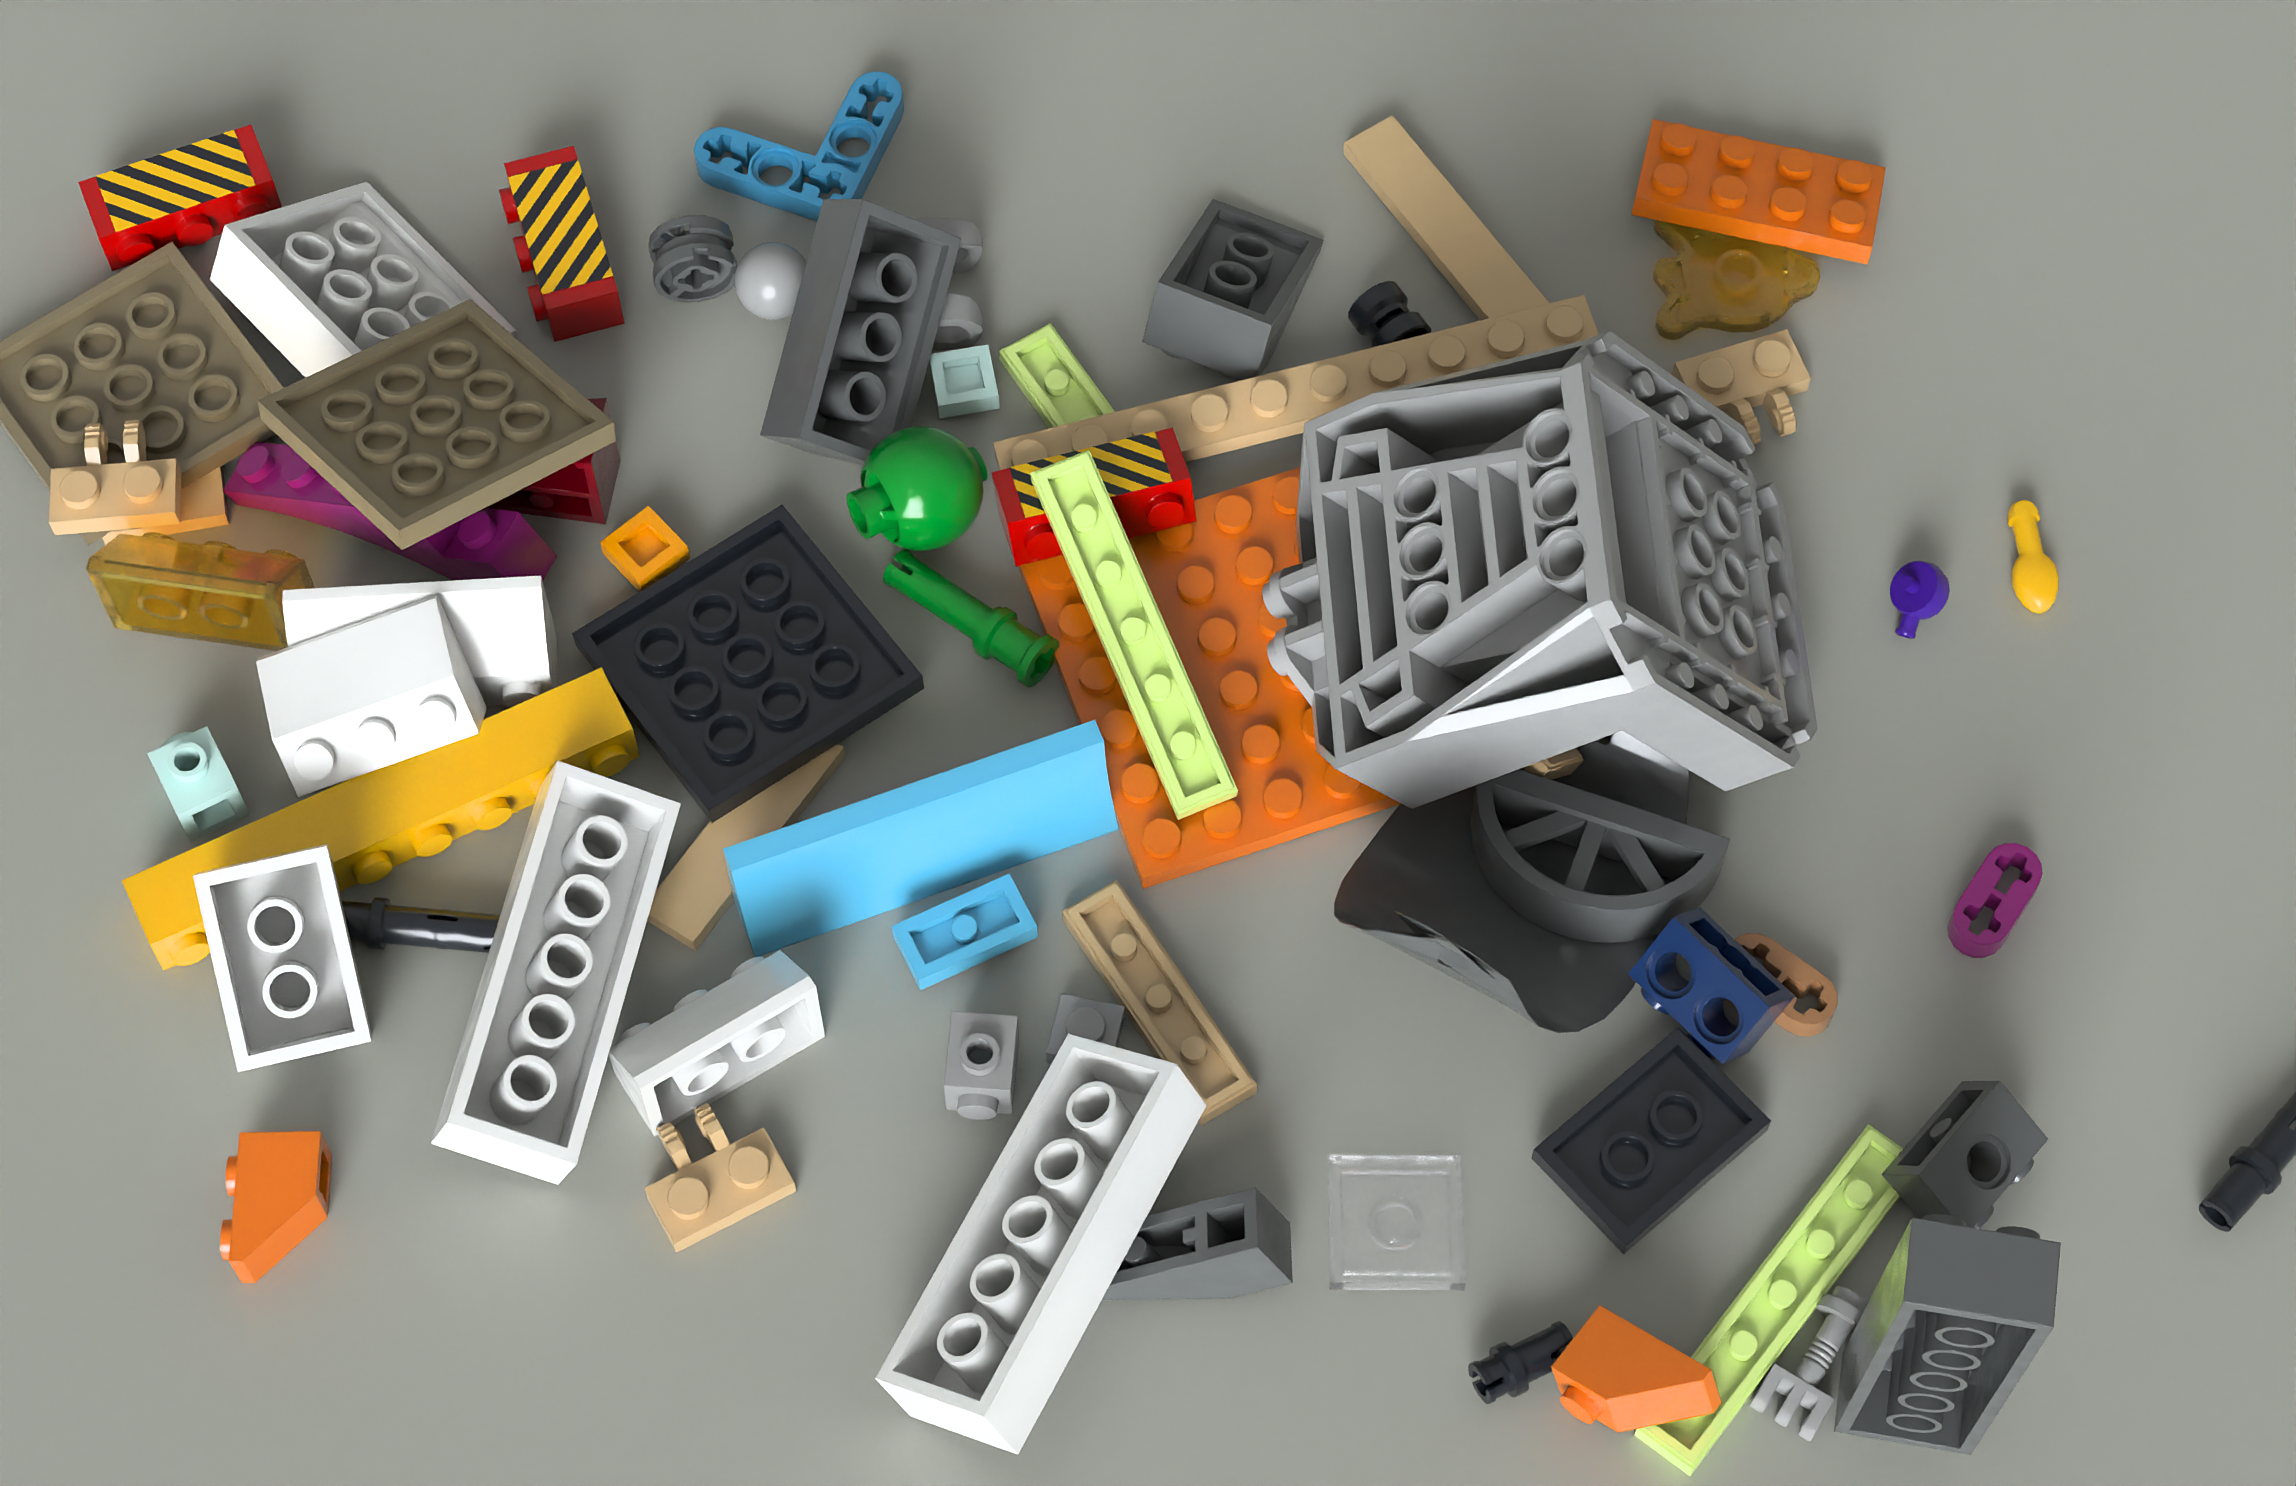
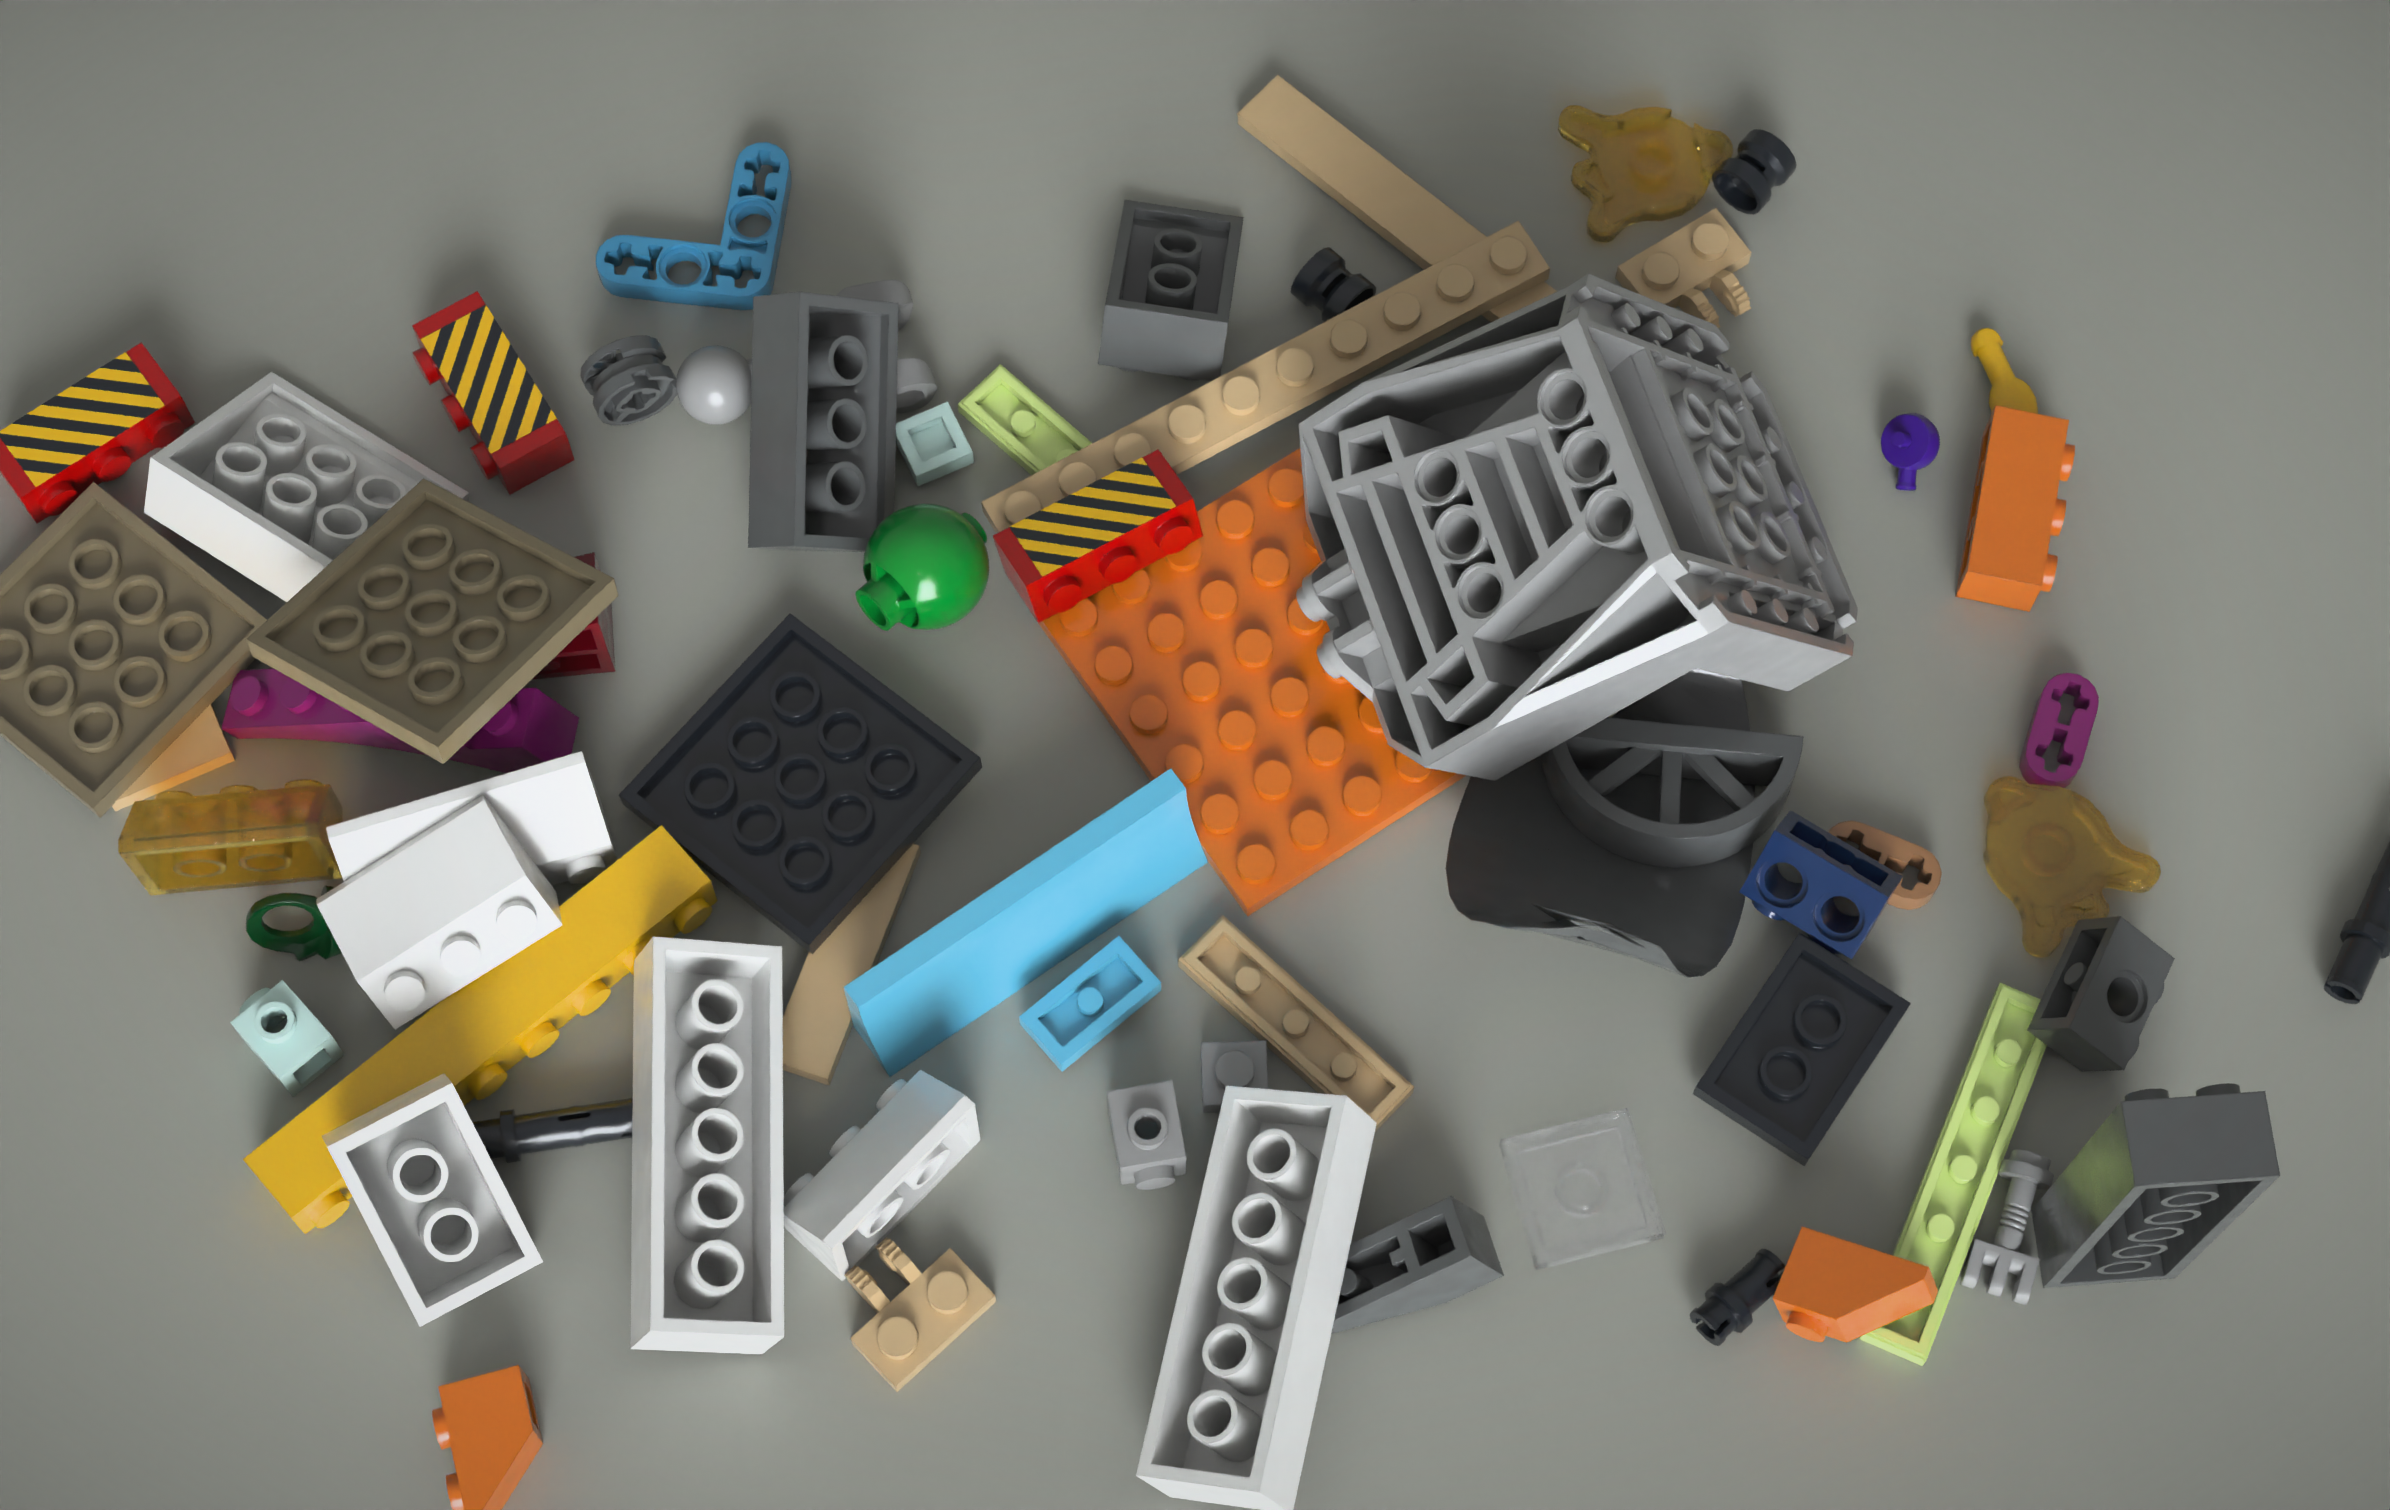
camera: 15 degrees left, 5 degrees up
(117, 493) = (117, 761): tan hinge -> none
(240, 702) = (302, 942): none -> dark green piece
(645, 549) = (665, 690): light orange plate -> none
(992, 631) = (1033, 692): green pin -> none
(1134, 635) = (1178, 668): yellowish green tile -> none
(1759, 191) = (1652, 73): orange plate -> none
(1839, 299) = (1750, 176): none -> black wheel
(1958, 1019) = (2055, 857): none -> clear yellow tile
(2007, 676) = (2015, 509): none -> orange brick

